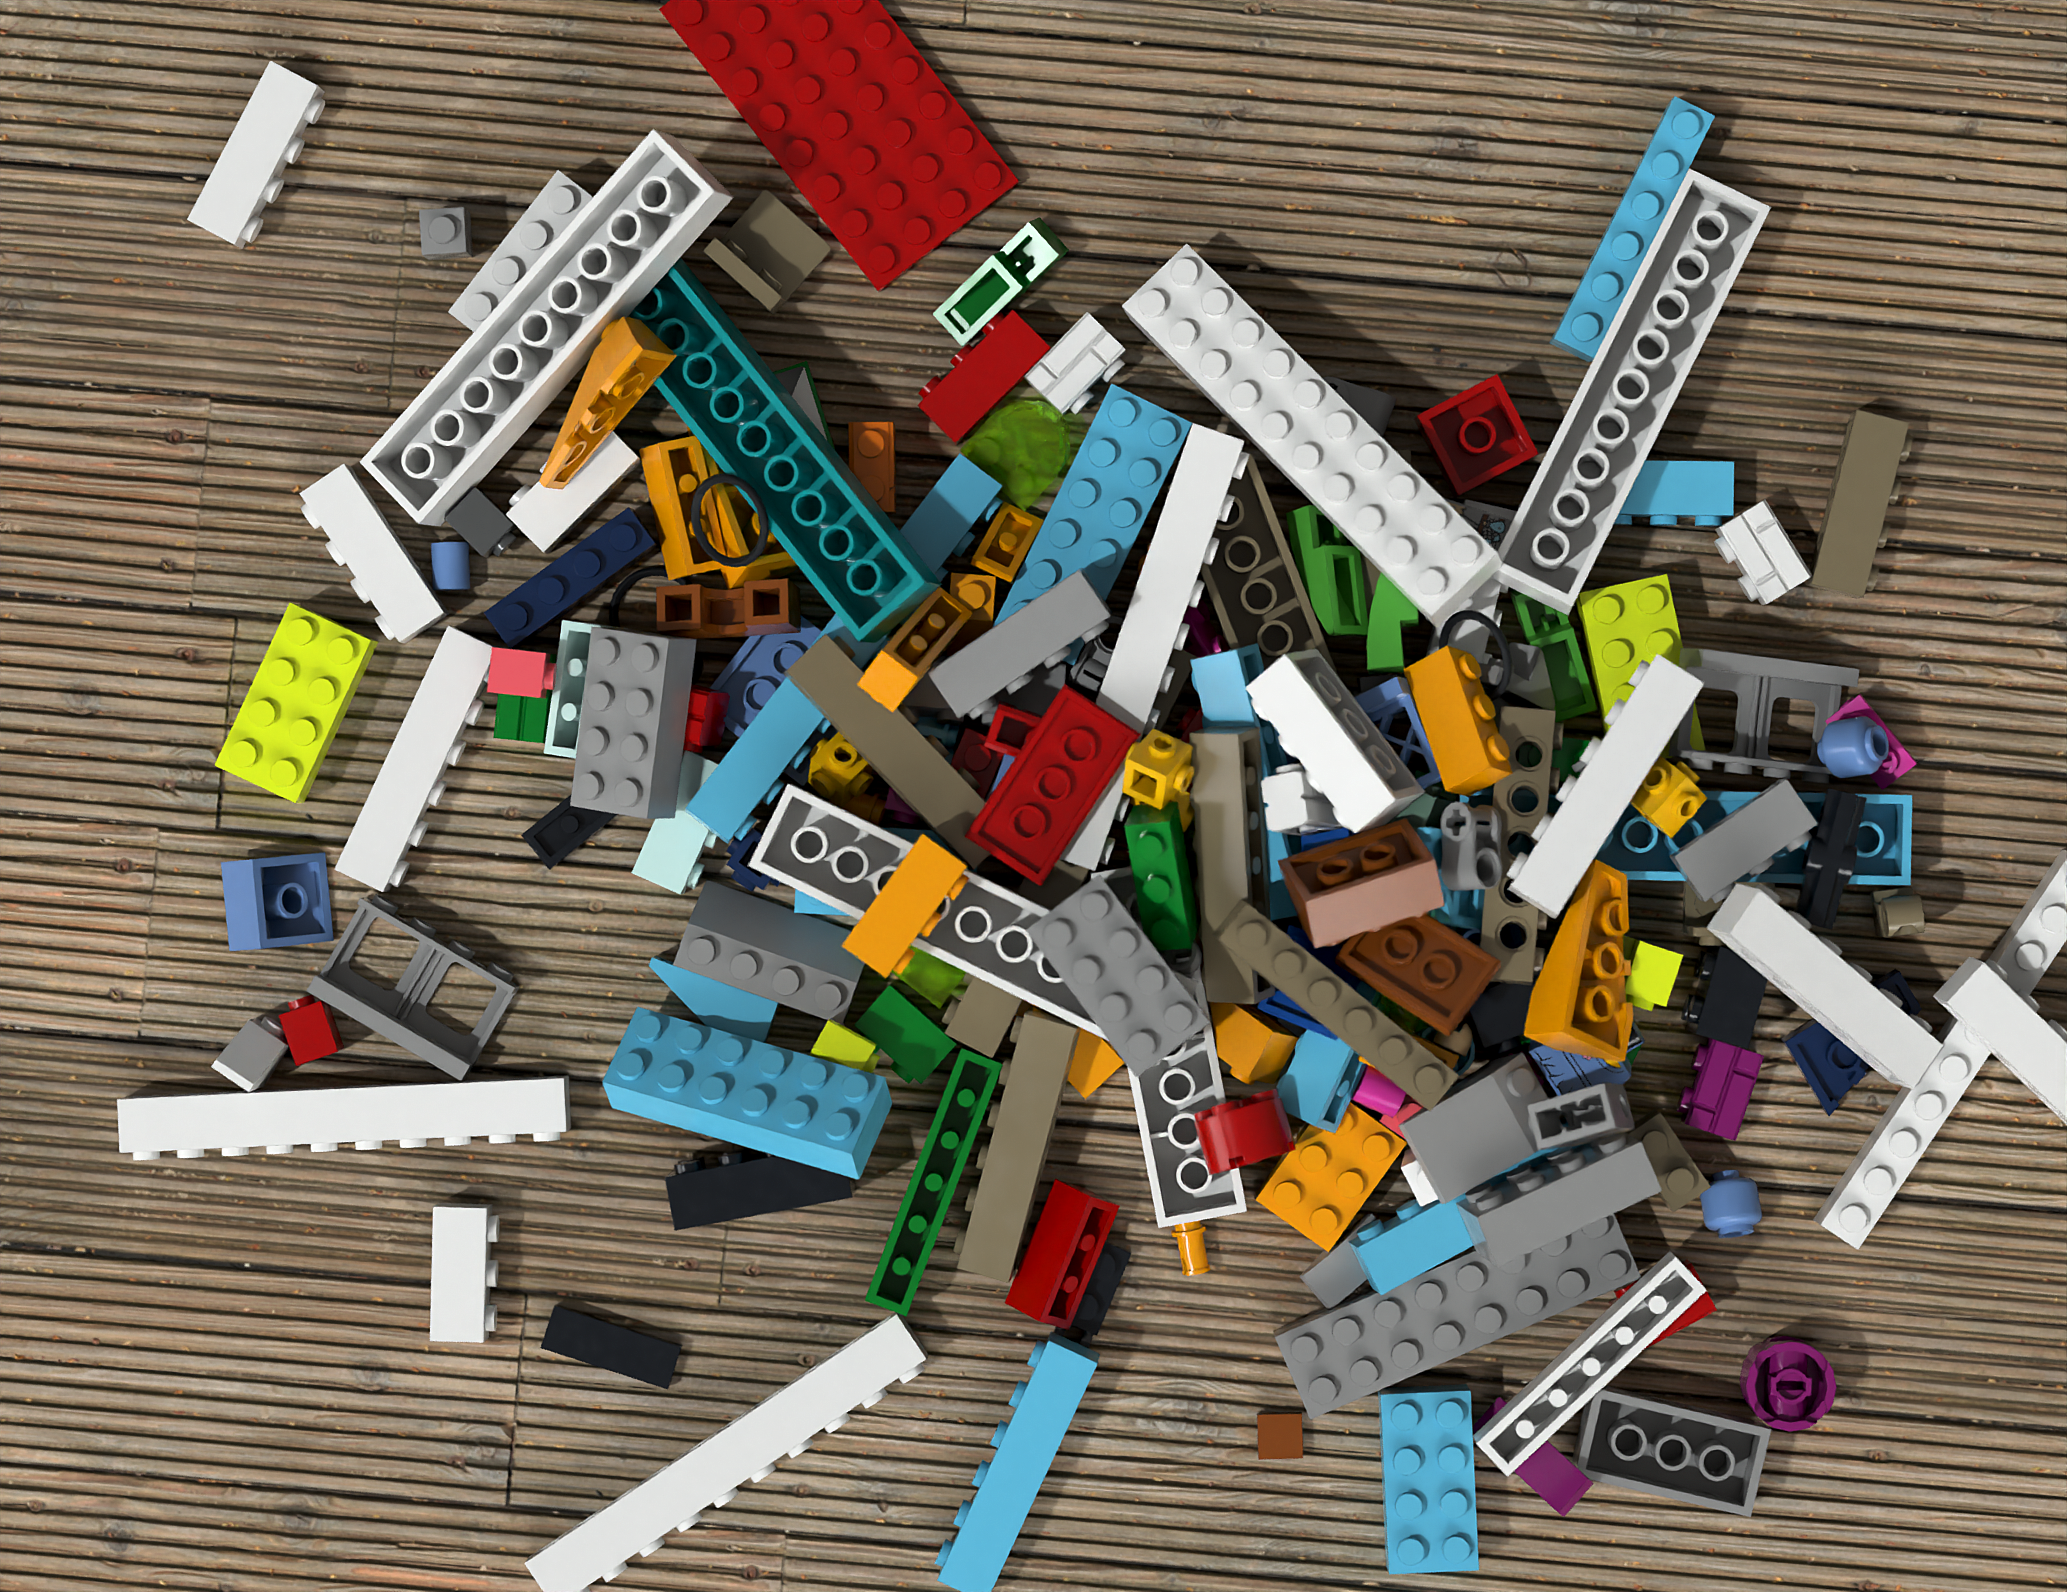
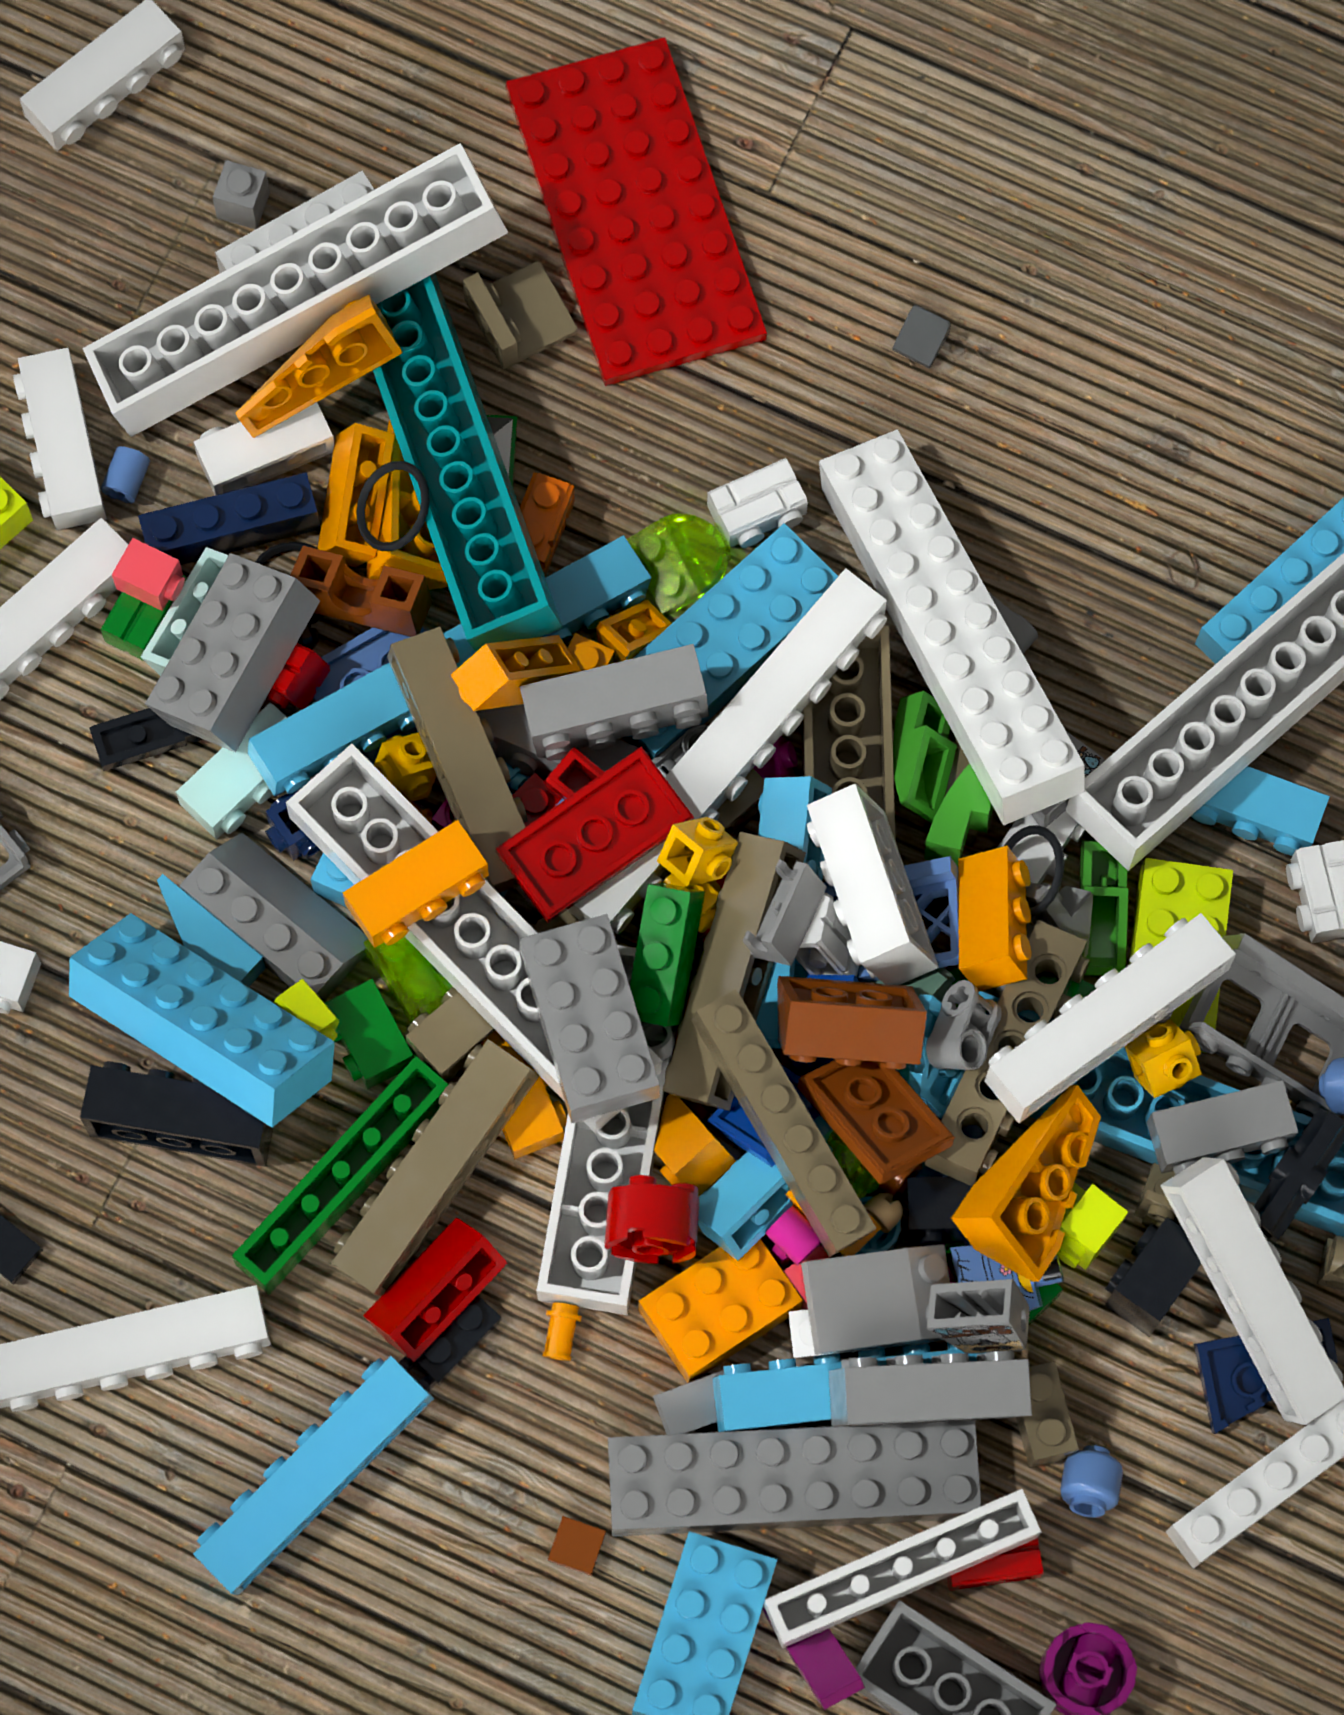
camera: 15 degrees right, 15 degrees down
(482, 524) = (169, 447): dark grey brick -> none
(982, 376) = (668, 483): red brick -> none
(1000, 281) = (718, 410): green slope -> none
(1172, 126) = (922, 336): none -> dark grey slope
(1267, 806) = (787, 915): none -> light grey hinge
(1476, 436) = (1100, 689): red brick -> none
(1719, 1088) = (1120, 1367): magenta brick -> none

